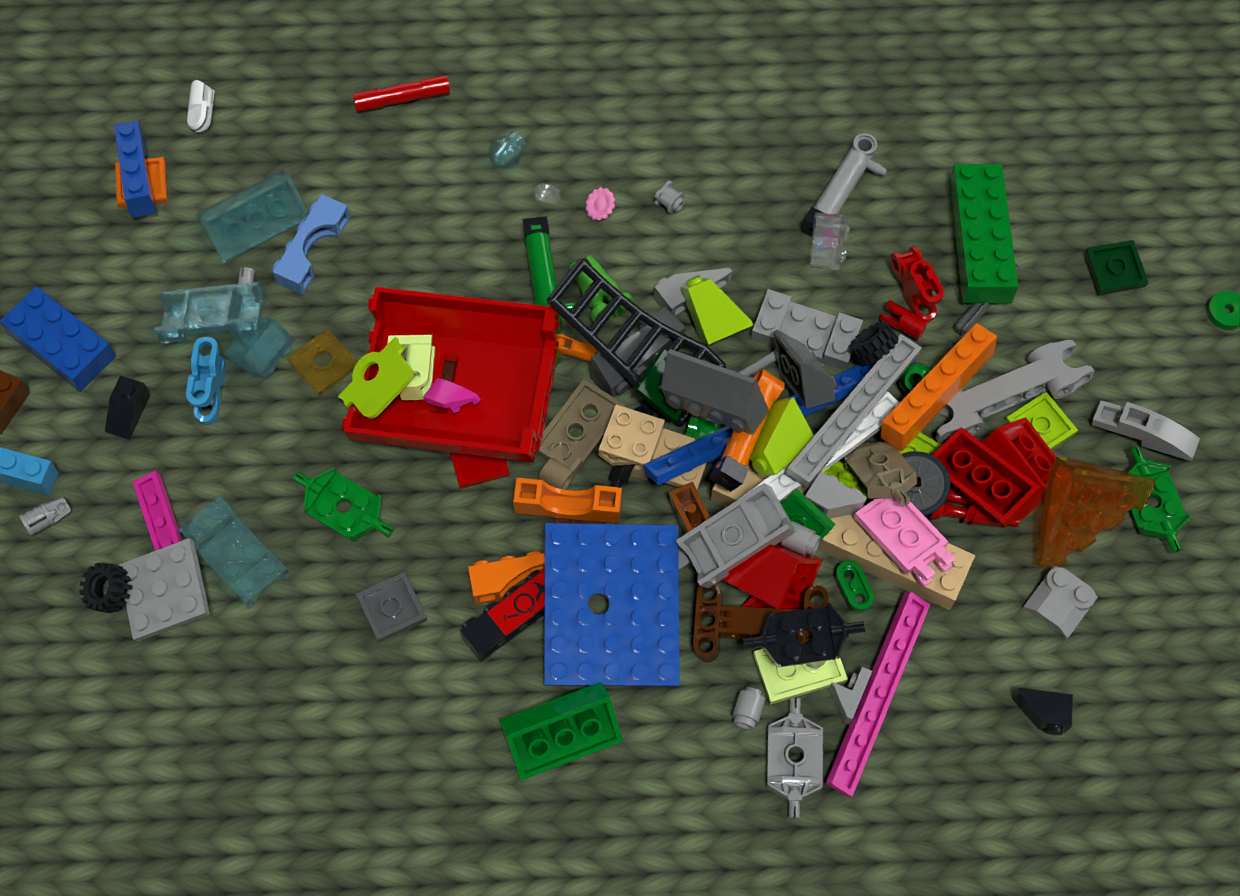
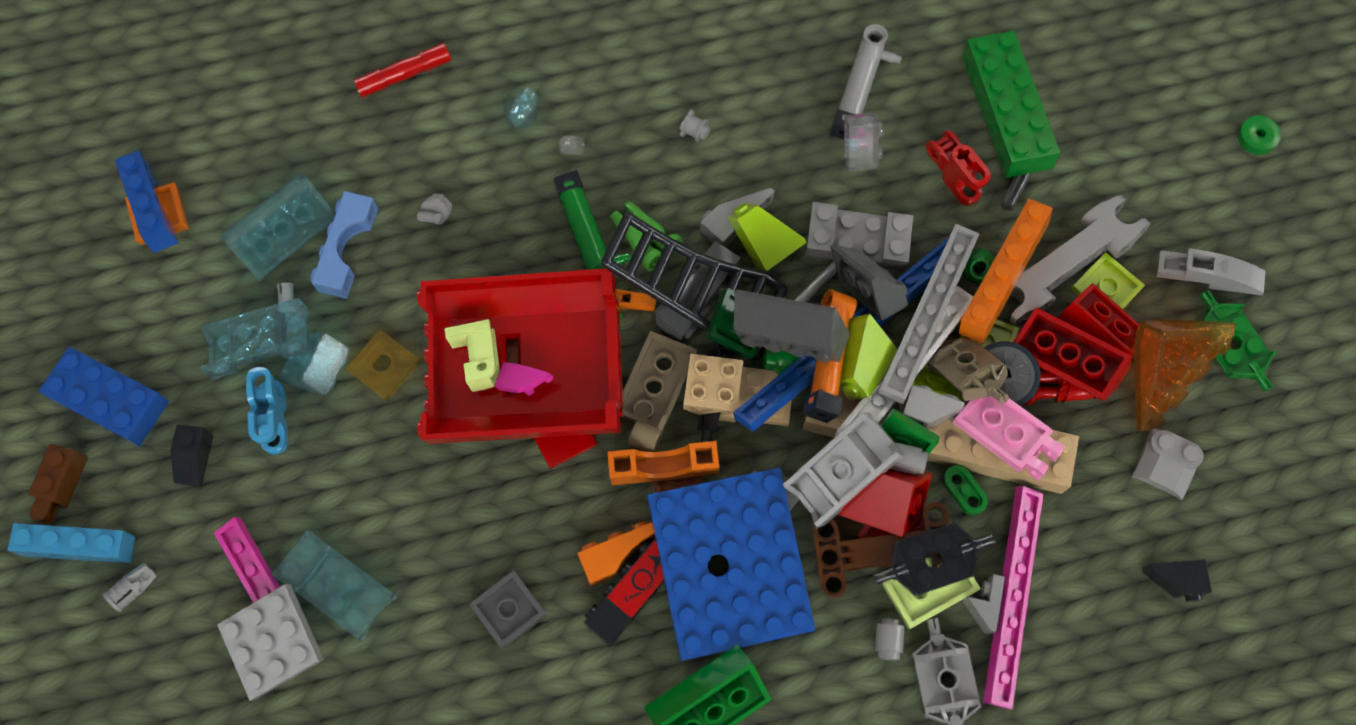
camera: 10 degrees left, 5 degrees up
(94, 584) = (197, 653): black tyre -> none
(200, 106) = (200, 122): white arm -> none
(328, 491) = (417, 500): green plate -> none
(375, 395) = (458, 375): lime piece -> none
(403, 228) = (435, 209): none -> light grey piece
(600, 204) = (626, 146): bright pink piece -> none
(688, 507) = (787, 447): dark orange brick -> none
(874, 343) = (931, 238): black tyre -> none
(908, 323) = (958, 208): red hinge -> none
(1116, 267) = (1144, 112): dark green plate -> none

